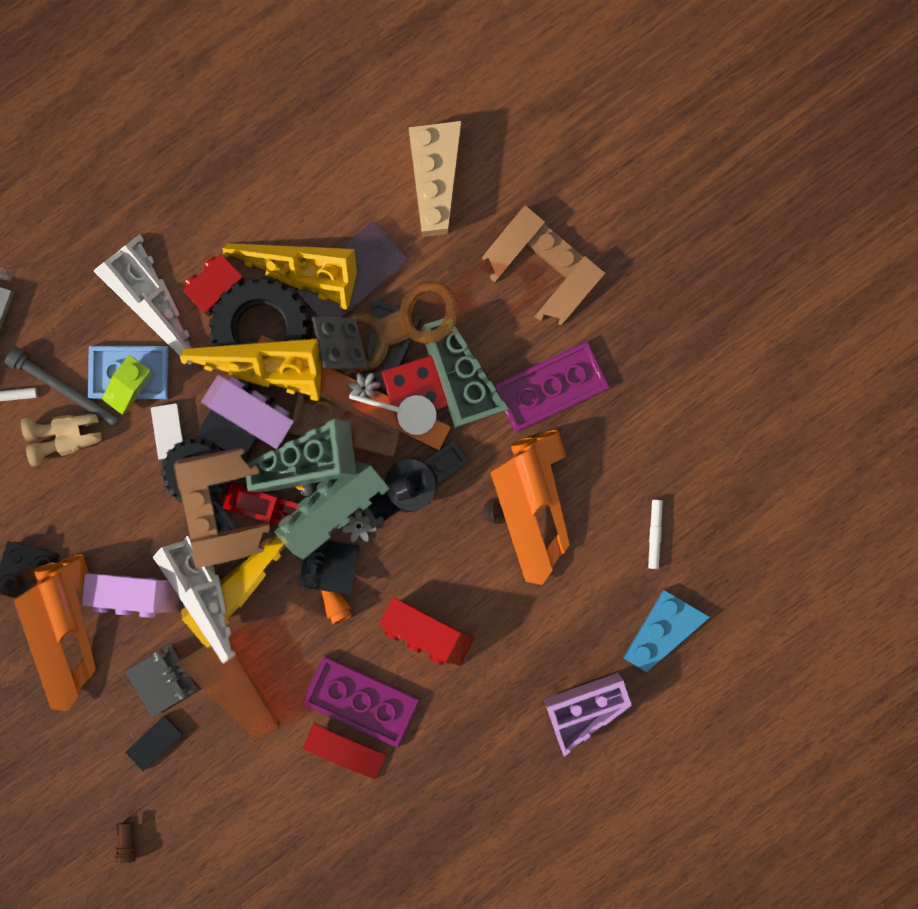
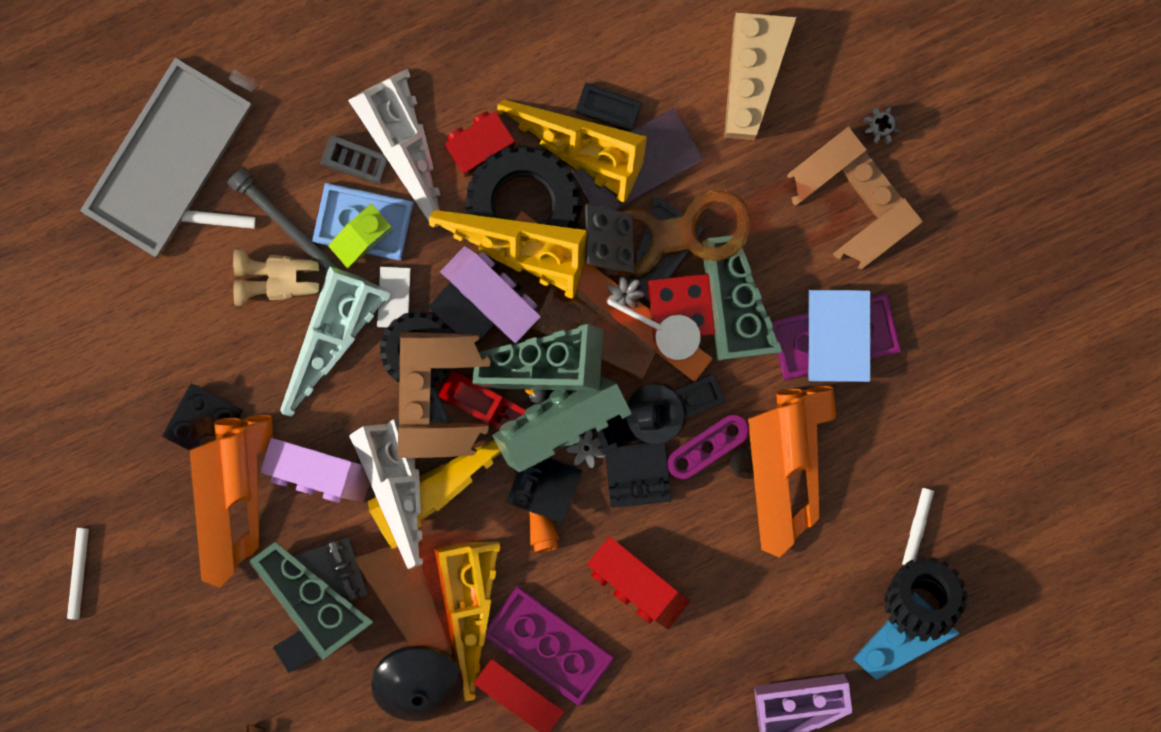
camera: 15 degrees right, 0 degrees up
(98, 329) = (326, 160): none -> flat silver slope
(123, 457) = (339, 315): none -> light aqua wedge
(148, 709) = (313, 606): none -> sand green wedge
(254, 758) = (416, 673): none -> black dish
(280, 663) = (466, 585): none -> yellow wedge
(318, 231) = (608, 107): none -> black tile
(407, 539) = (638, 475): none -> black hinge
(468, 492) = (721, 443): none -> magenta plate
(547, 201) = (890, 123): none -> dark grey gear
(554, 385) = (839, 336): none -> light blue tile
(681, 576) = (937, 580): none -> black tyre

